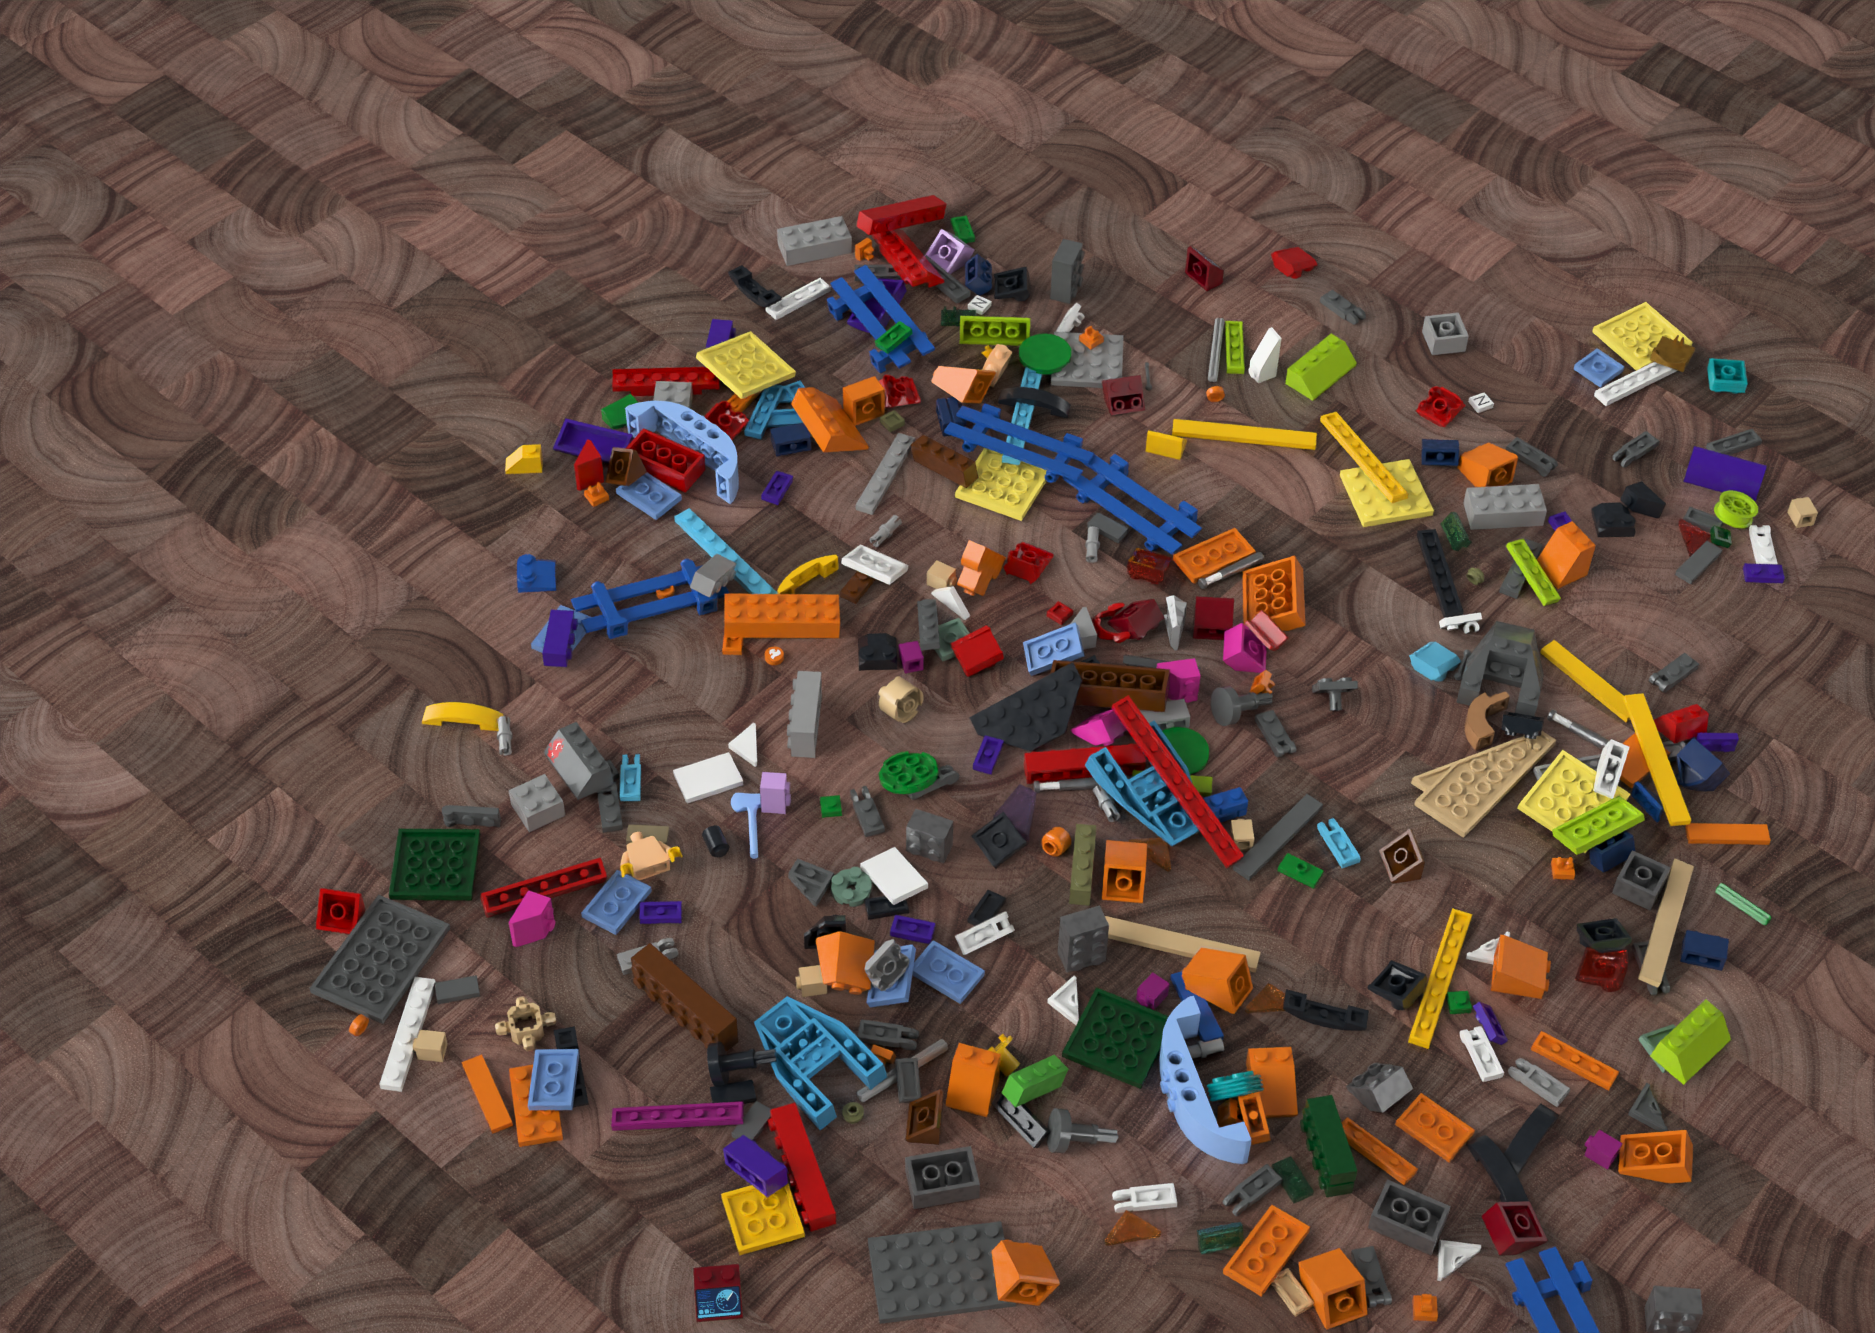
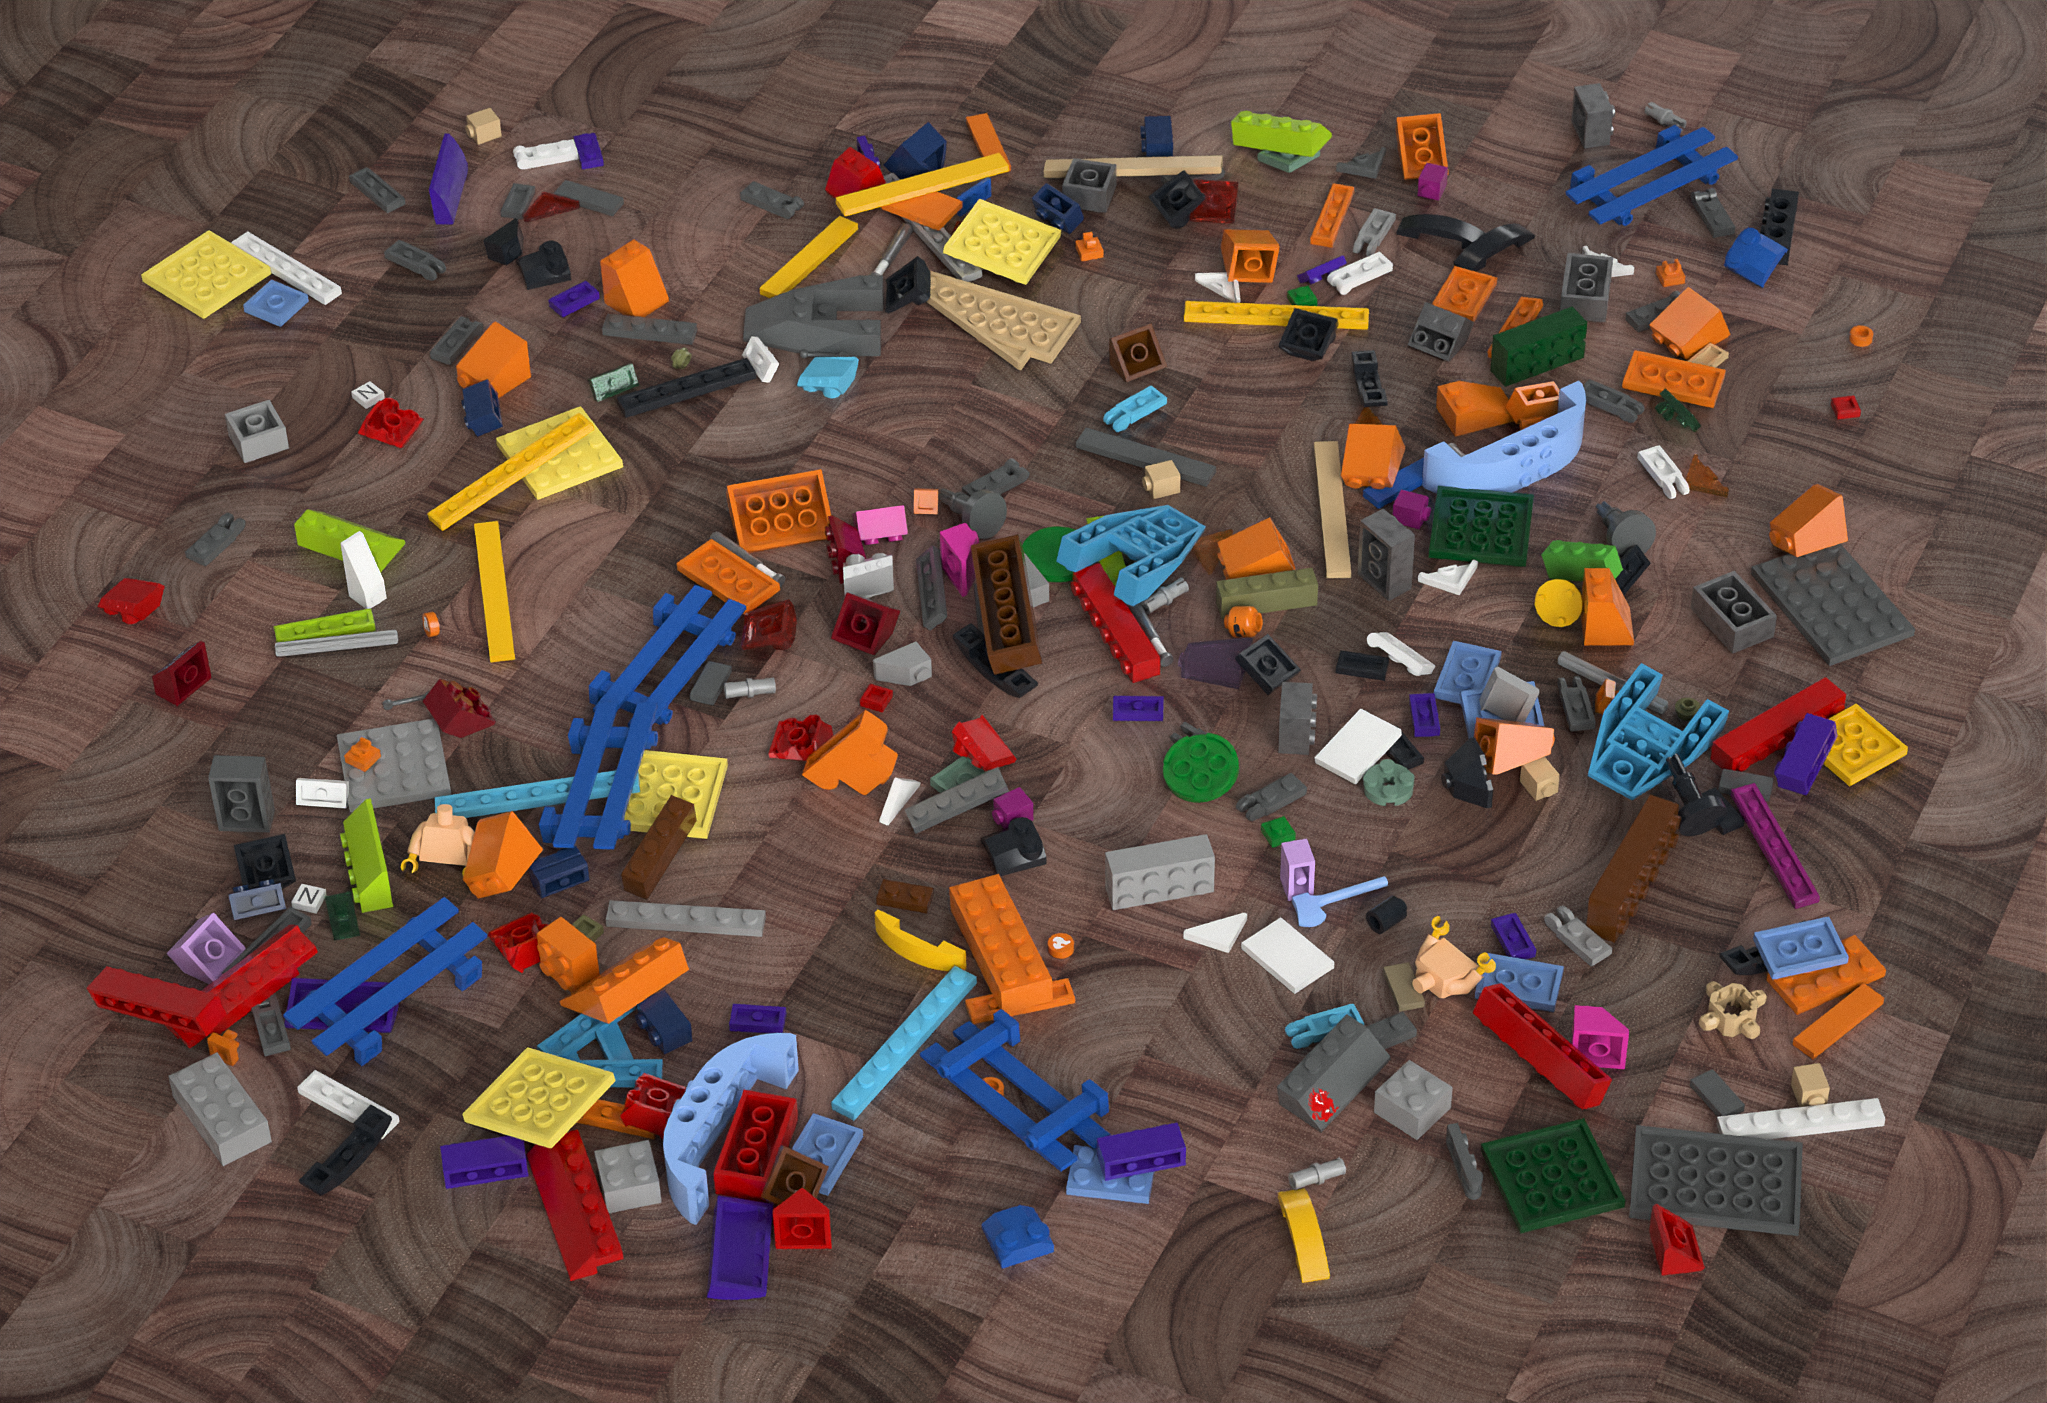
camera: 105 degrees left, 5 degrees down
(359, 1025) = (1820, 1165): orange tile -> none
(525, 460) = (805, 1315): yellow slope -> none
(596, 495) = (841, 1216): orange tile -> none
(615, 413) = (665, 1231): green slope -> none
(713, 575) = (967, 1018): light grey brick -> none
(717, 1293) = (1959, 754): slope -> none
(810, 880) = (1400, 817): dark grey wing -> none
(874, 564) = (867, 881): white tile -> none
(885, 531) = (798, 888): light grey pin -> none
(893, 337) = (439, 941): green plate -> none
(900, 699) = (1096, 793): tan brick -> none
(908, 1079) = (1621, 669): dark grey tile -> none
(925, 1119) = (1665, 642): reddish brown slope -> none
(941, 575) = (863, 812): tan brick -> none
(963, 229) = (145, 950): green plate -> none
(1033, 713) = (1072, 664): black plate -> none
(1035, 397) = (504, 785): black slope -> none
(1045, 353) = (408, 794): green tile -> none
(1059, 644) = (954, 676): medium blue plate -> none
(1100, 728) = (1061, 611): dark pink slope -> none
(1104, 634) = (867, 657): red helmet -> none
(1165, 445) = (537, 653): yellow slope -> none
(1177, 781) = (1132, 515): red plate -> none
(1228, 804) = (1126, 493): blue brick -> none
(1234, 1085) = (1510, 411): teal brick -> none
(1267, 631) = (845, 503): panel -> none
(1292, 1179) = (1582, 373): clear green plate -> none
(1300, 870) = (1185, 433): green plate -> none
(1334, 690) = (916, 434): dark grey plate -> none
(1477, 729) = (908, 329): medium nougat arch -> none
(1504, 506) = (557, 346): light grey brick -> none
(1513, 1227) = (1557, 224): dark red slope -> none
(1533, 572) = (661, 311): lime tile -> none
(1598, 825) = (1039, 210): lime plate -> none
(1610, 768) = (958, 205): white slope -> none
(1672, 353) = (243, 237): pearl gold piece -> none
(1720, 536) = (545, 182): dark green plate -> none
(1727, 375) = (263, 198): teal brick -> none
(1736, 509) = (498, 172): lime wheel -> none
(1743, 904) = (1078, 125): axle -> none

